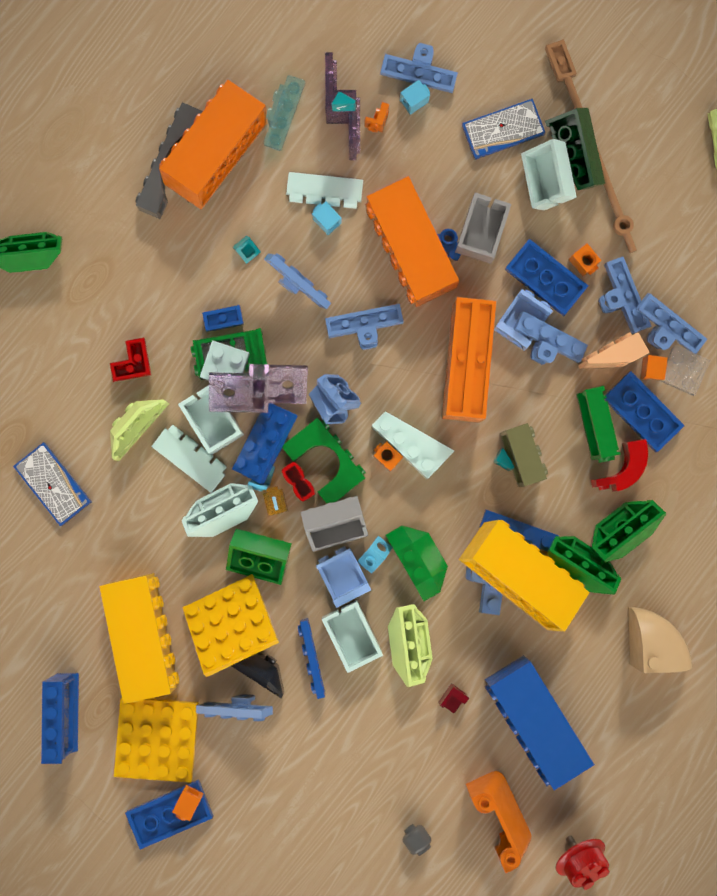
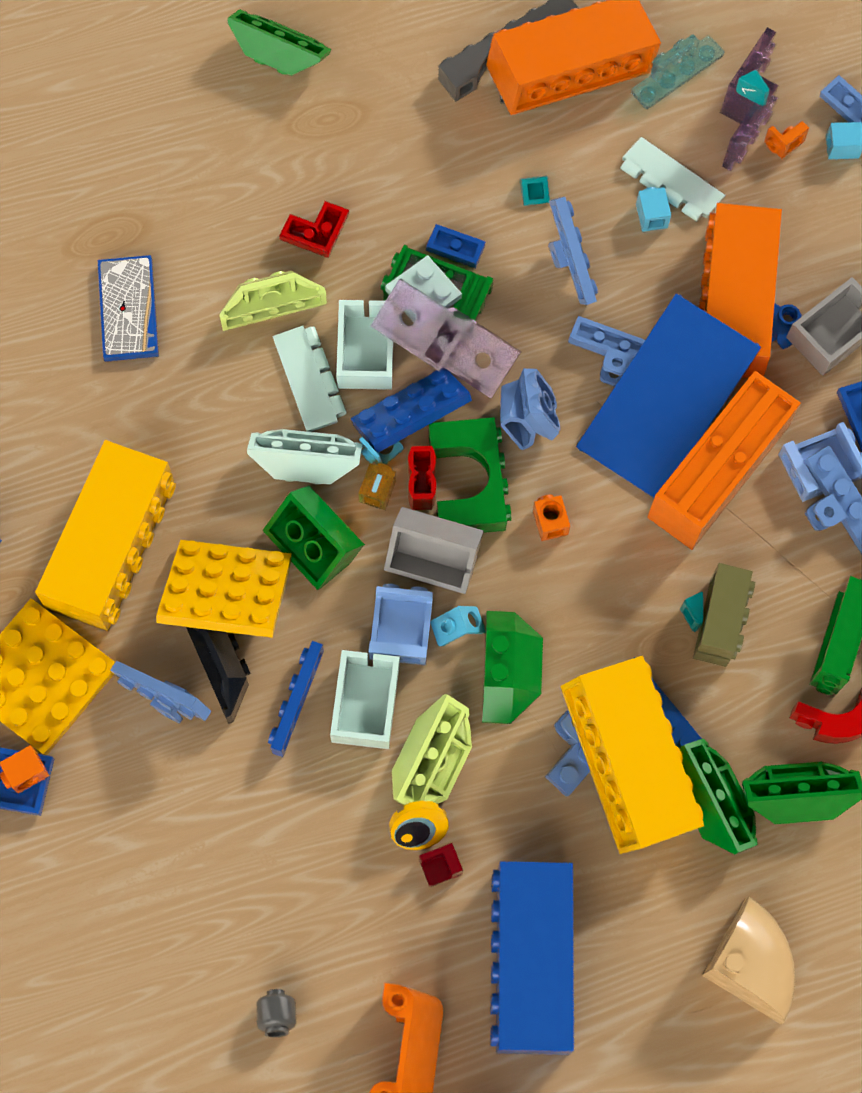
camera: 35 degrees right, 15 degrees down
(412, 339) = (668, 395): none -> blue piece
(416, 447) = (594, 528): light aqua wedge -> none
(428, 688) = (418, 825): none -> yellow tile

